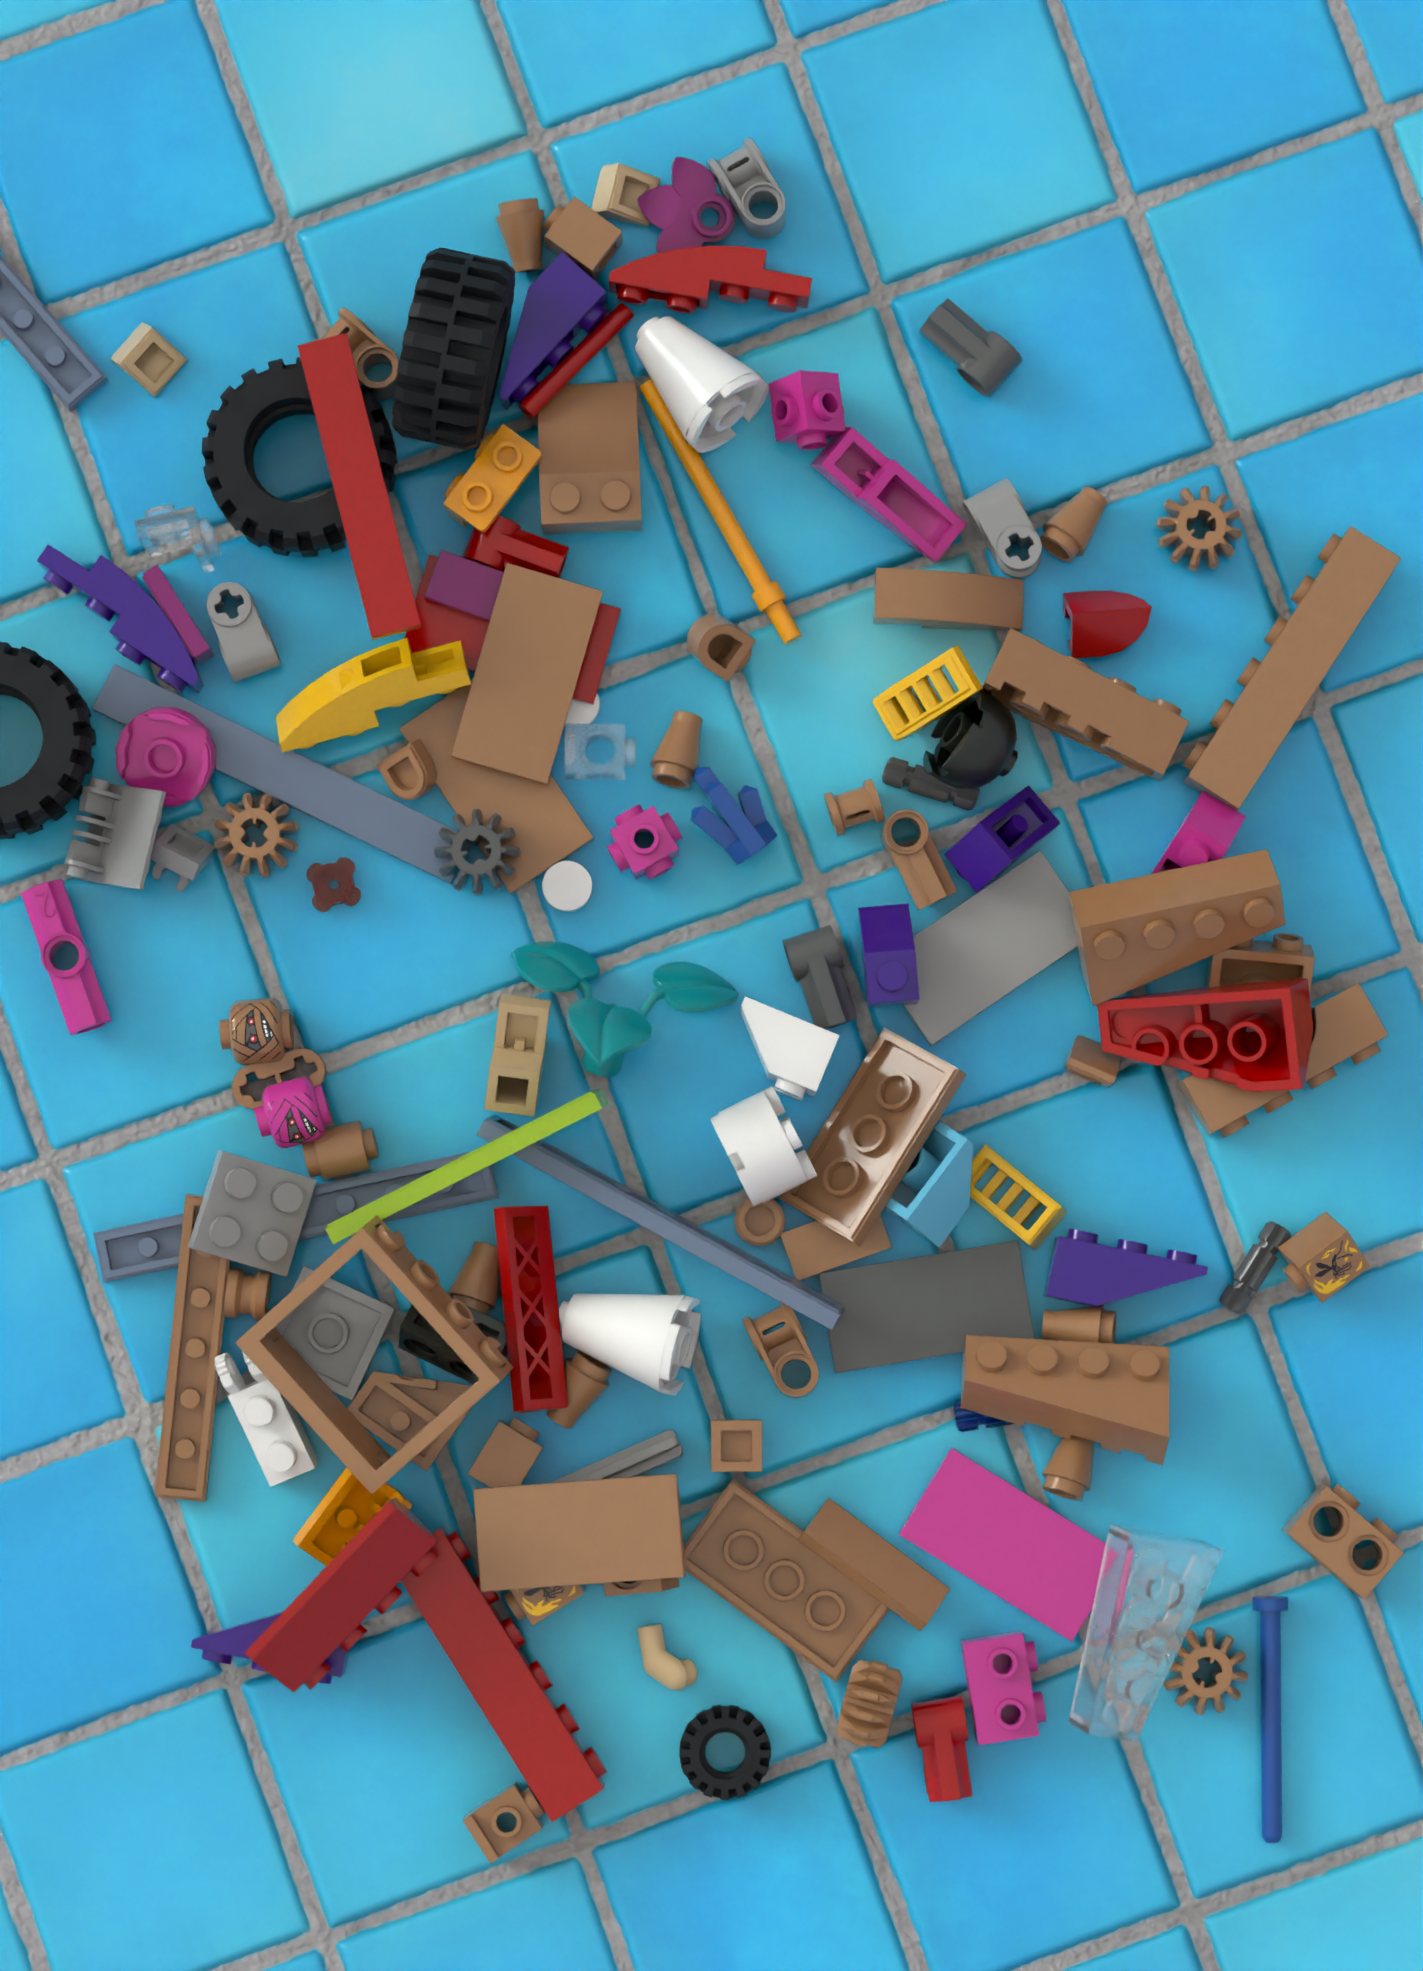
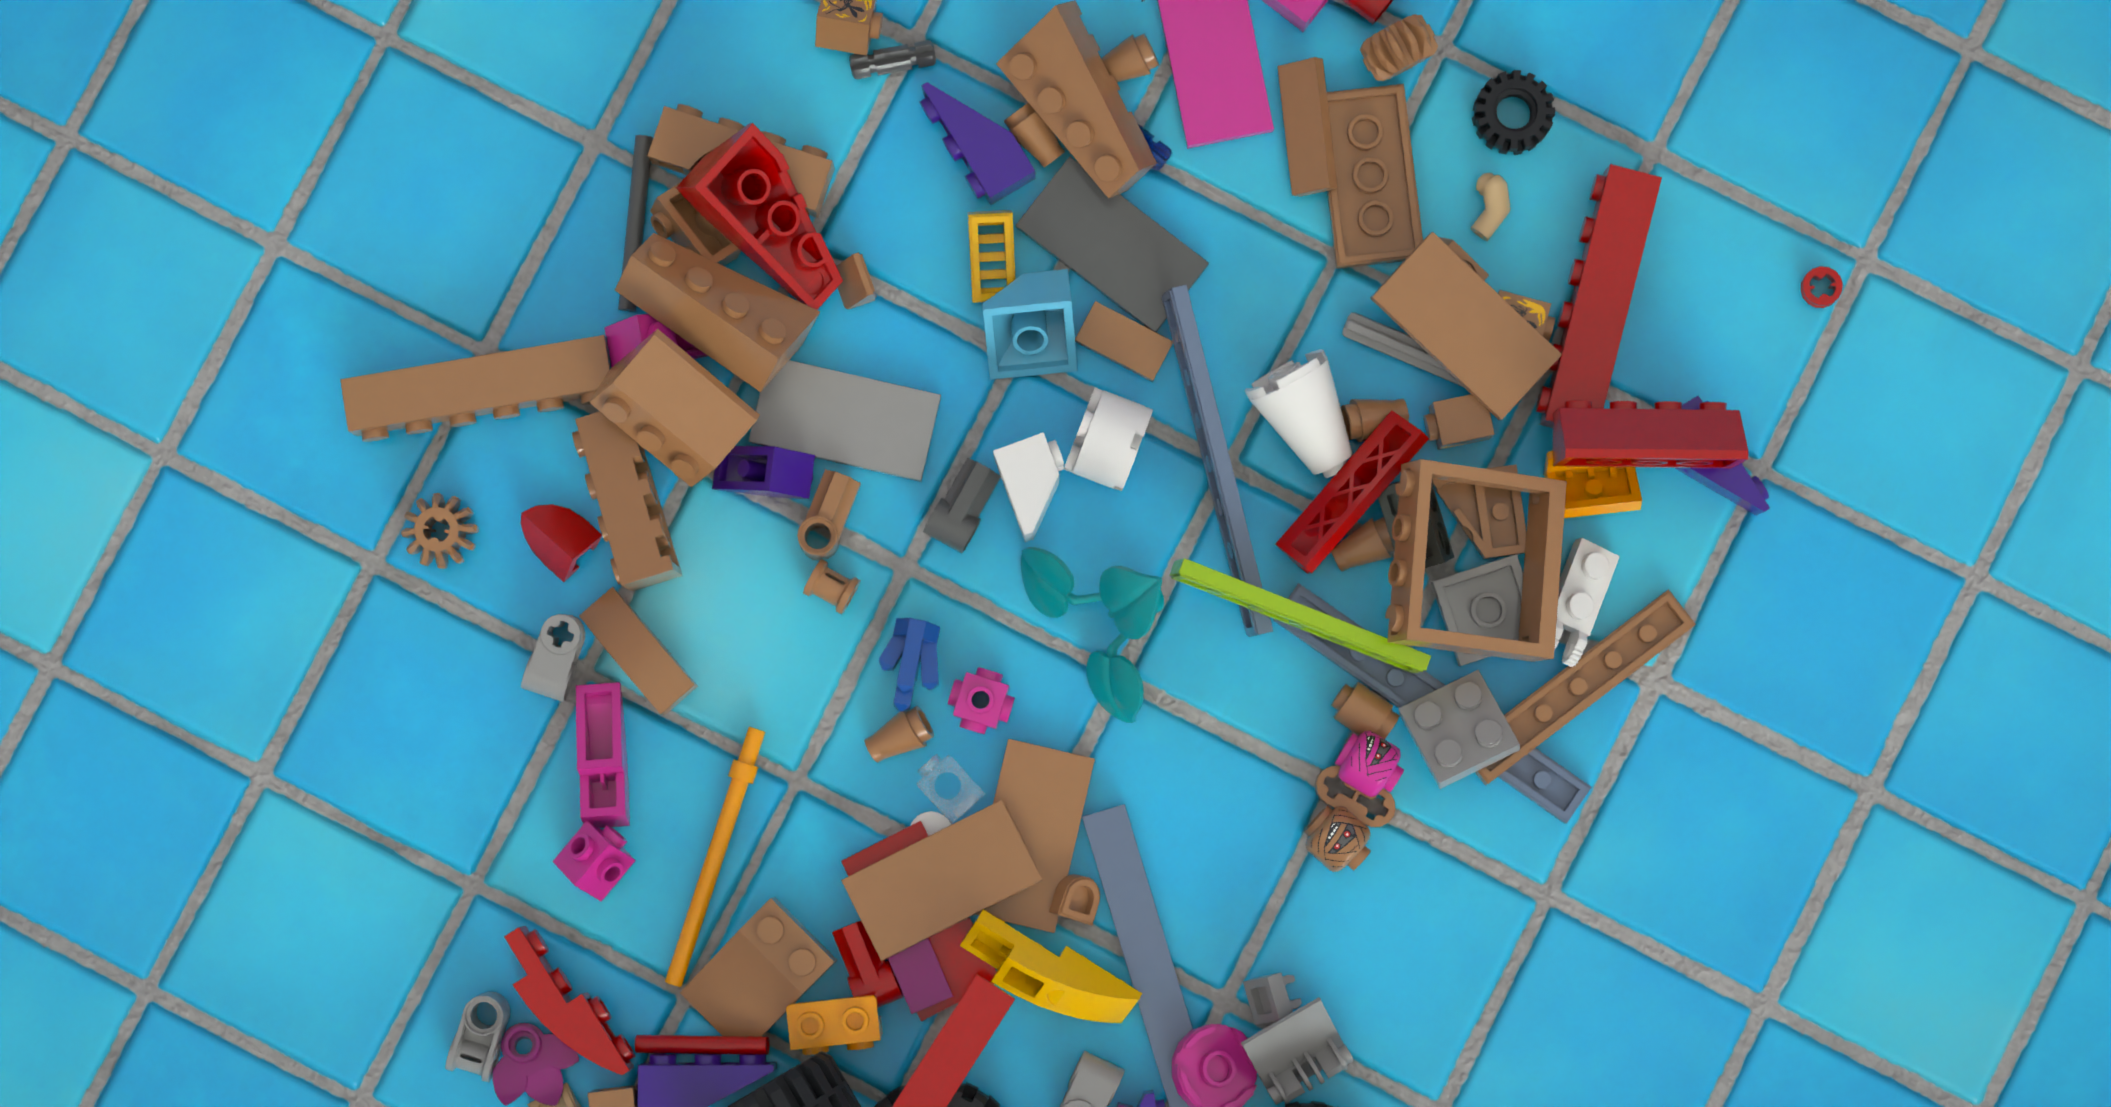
camera: 130 degrees left, 0 degrees up
(56, 926) = (1391, 1036): dark pink piece -> none
(247, 1294) = (1512, 685): medium nougat wheel -> none
(273, 833) = (1201, 948): medium nougat gear -> none
(321, 876) = (1208, 877): clear red plate -> none
(347, 1884) = (1818, 274): none -> red bush
(473, 835) = (1081, 815): dark grey gear -> none
(486, 1831) = (1673, 220): medium nougat brick -> none
(518, 1055) = (1197, 652): tan brick -> none
(567, 886) = (1055, 726): white tile -> none
(698, 382) = (642, 949): white cone -> none
(719, 645) = (805, 772): medium nougat plate -> none
(736, 1445) = (1315, 281): medium nougat brick -> none
(760, 1223) = (1161, 398): medium nougat tile -> none
(782, 1347) = (1225, 310): medium nougat piece -> none
(874, 1135) = (1033, 376): medium nougat tile -> none
(888, 956) = (909, 473): dark purple slope -> none
(902, 710) = (738, 615): yellow slope -> none
(921, 783) = (769, 552): dark grey axle -> none
(974, 743) = (717, 547): pearl dark grey cylinder -> none
(980, 356) = (454, 778): dark grey piece -> none
(1073, 525) = (512, 615): medium nougat cone -> none
(1121, 807) = (674, 408): none -> medium nougat slope
(1327, 941) = (636, 206): none -> dark grey bar

